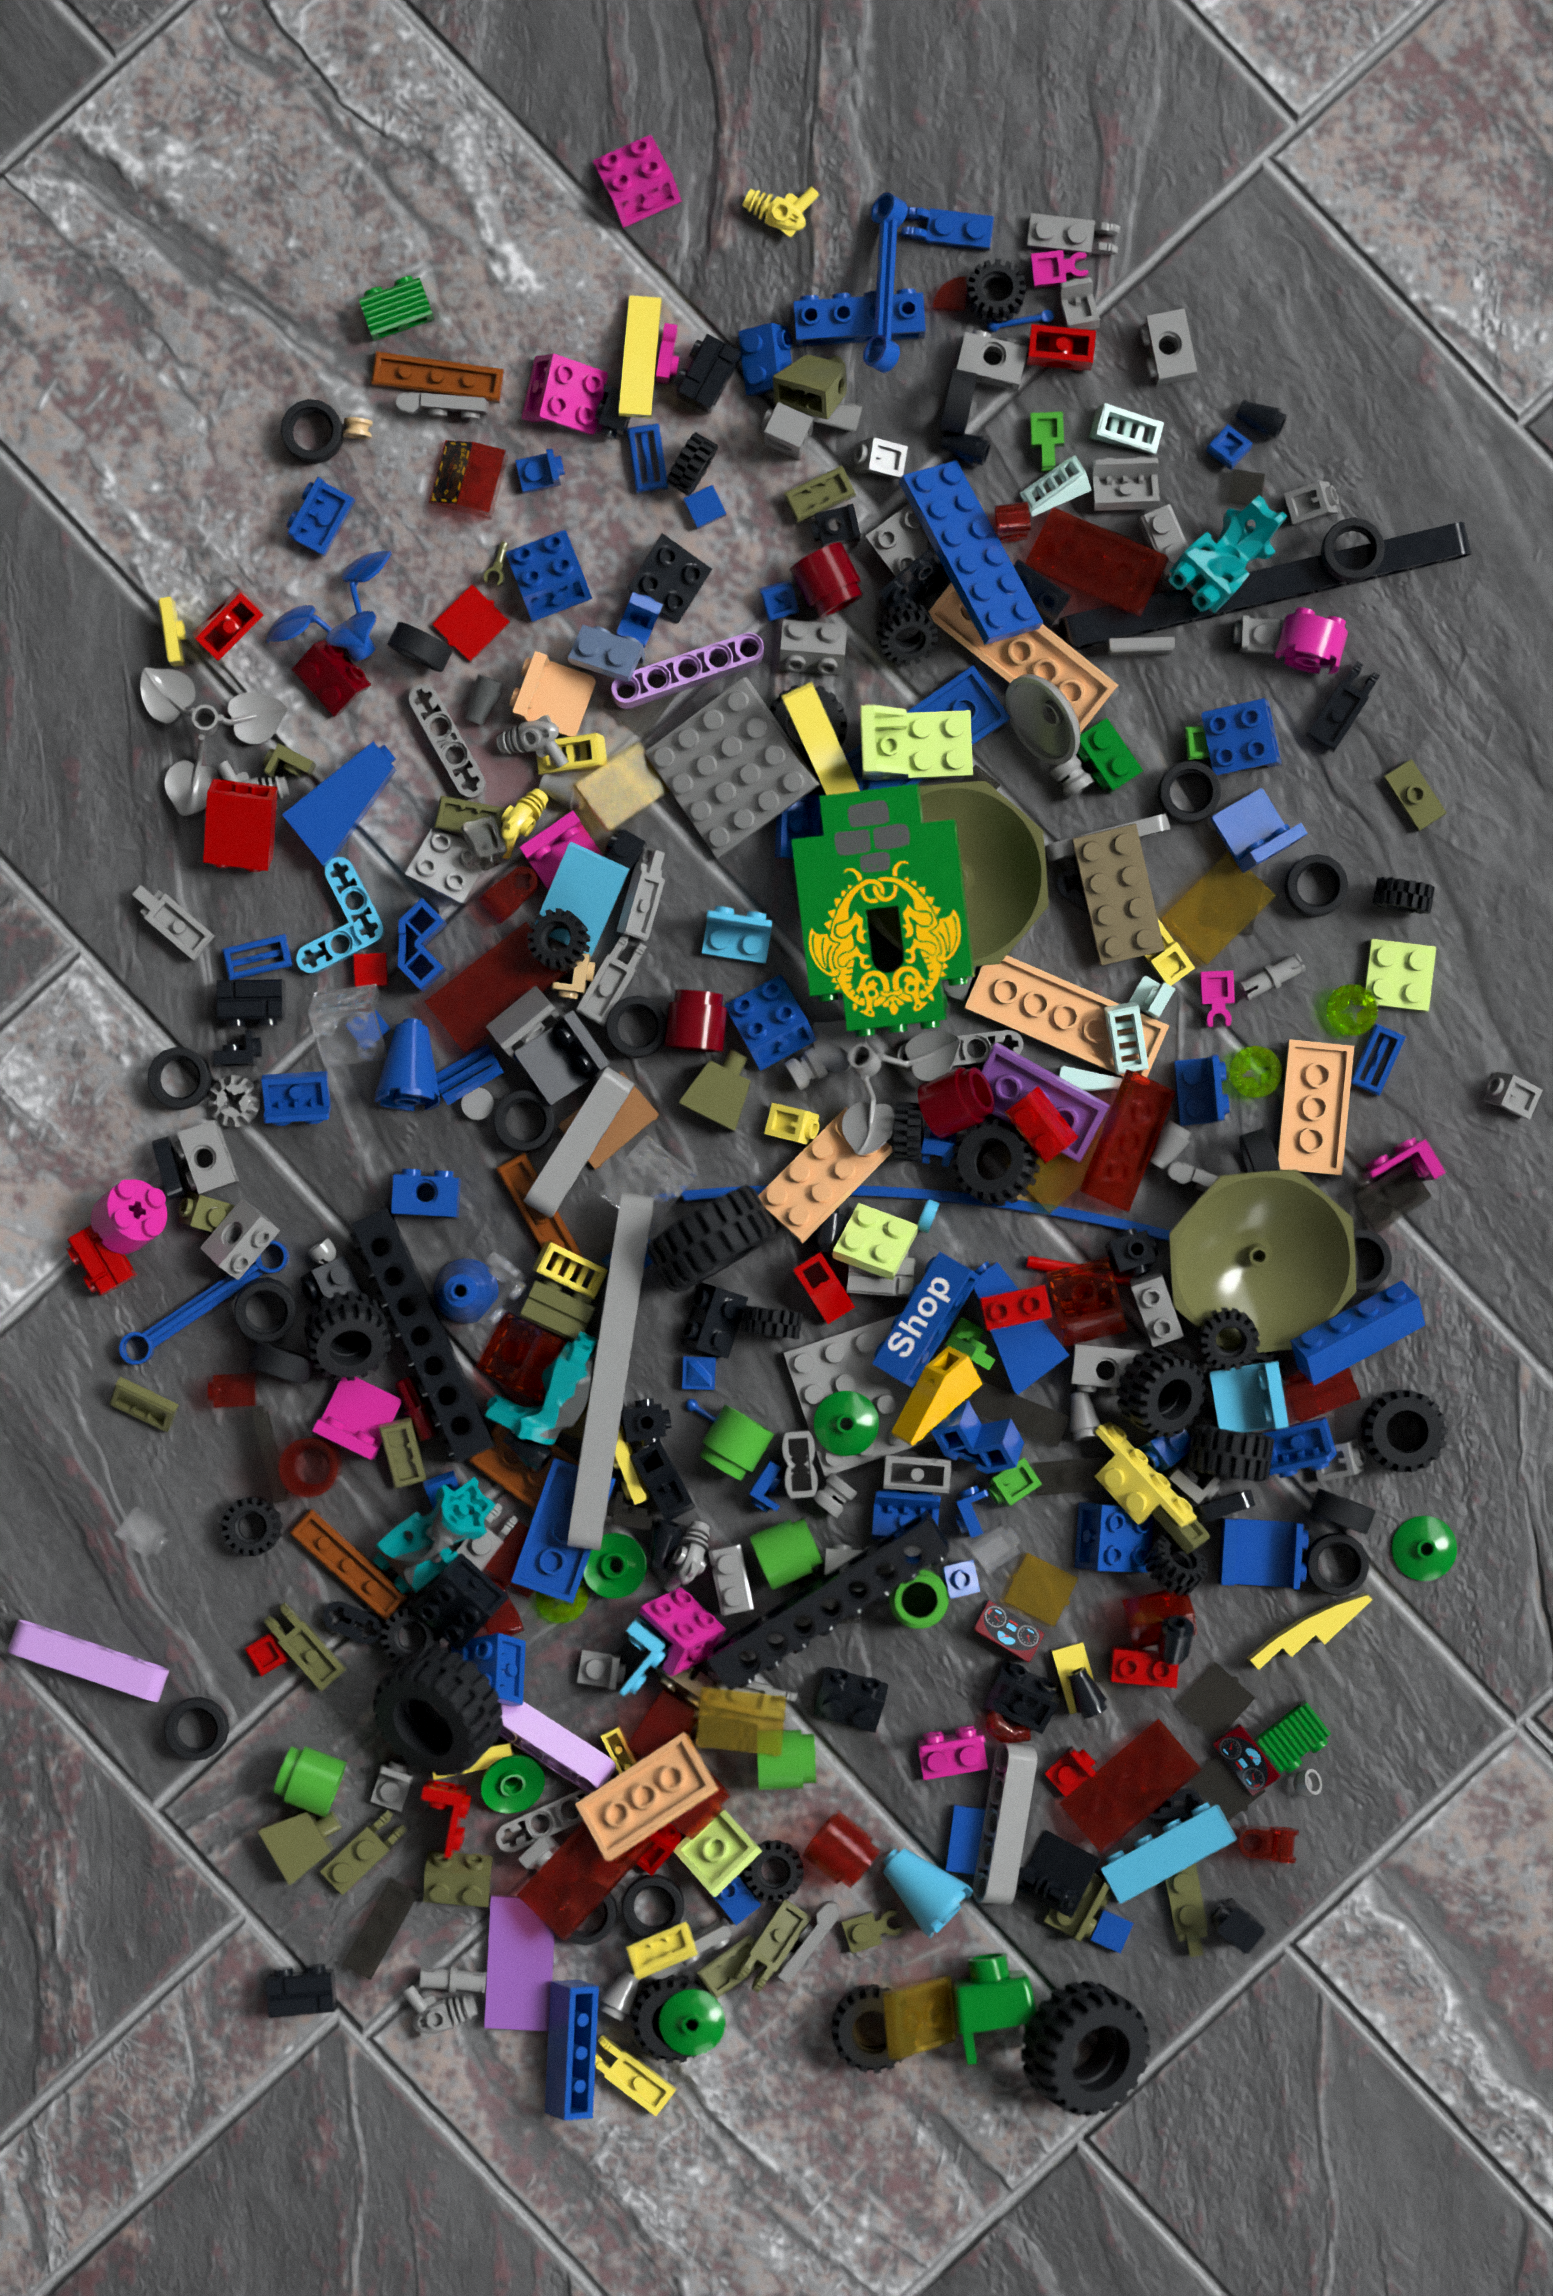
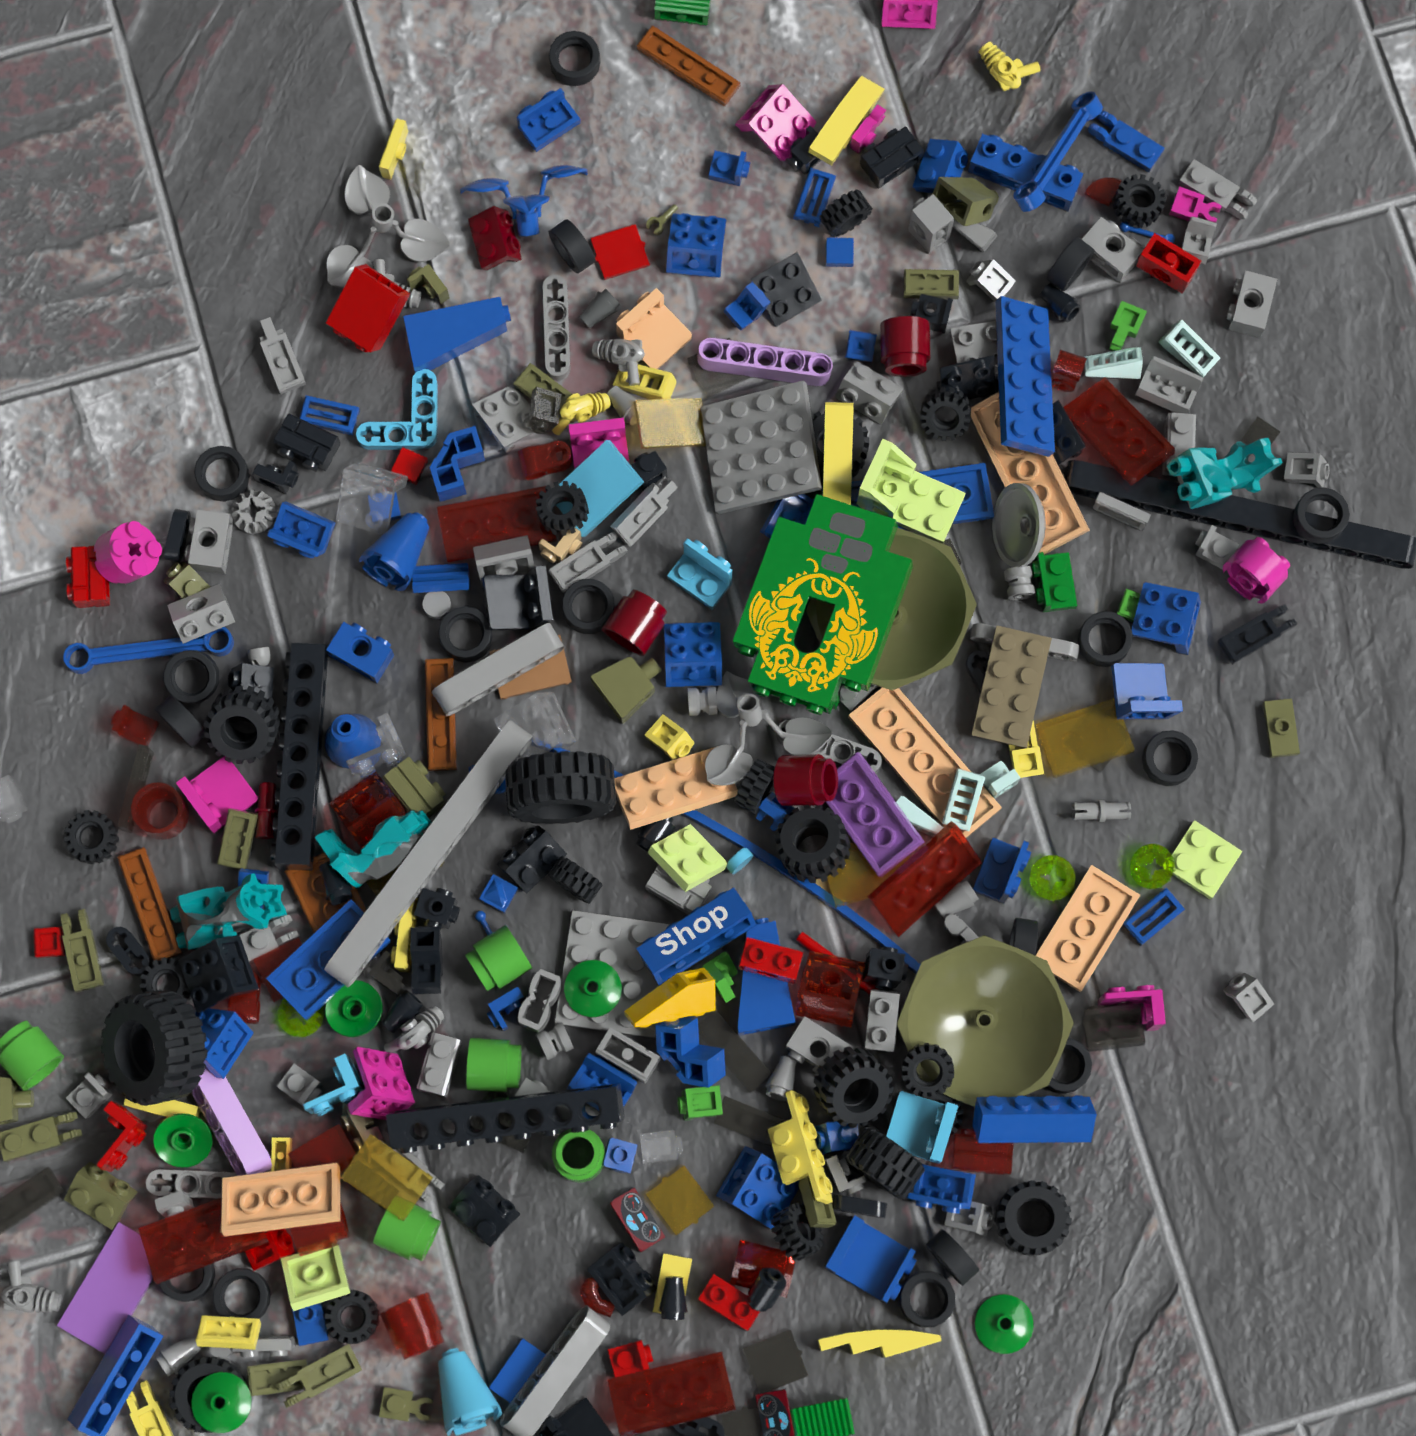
camera: 25 degrees right, 10 degrees down
(143, 1404) = (60, 702): olive plate -> none
(228, 623) = (437, 161): red brick -> none
(357, 428) = (609, 71): tan bush -> none
(440, 404) = (681, 84): light grey hinge -> none
(453, 1979) = (52, 1273): light grey pin -> none
(469, 477) = (674, 147): clear red slope -> none
(544, 1257) = (426, 743): light yellow slope -> none
(606, 653) = (710, 317): sand blue bracket -> none
(810, 1940) = (351, 1389): light grey hinge -> none
(824, 1288) = (629, 874): red slope -> none
(952, 1753) = (542, 1295): dark pink bracket -> none
(967, 1518) = (649, 1113): blue bracket -> none
(1041, 1125) = (863, 829): red brick -> none
(1217, 990) = (1051, 801): dark pink plate -> none
(1229, 447) = (1262, 398): blue tile -> none
(1263, 418) = (1299, 391): black cone -> none
(1403, 895) = (1235, 797): black tyre -> none

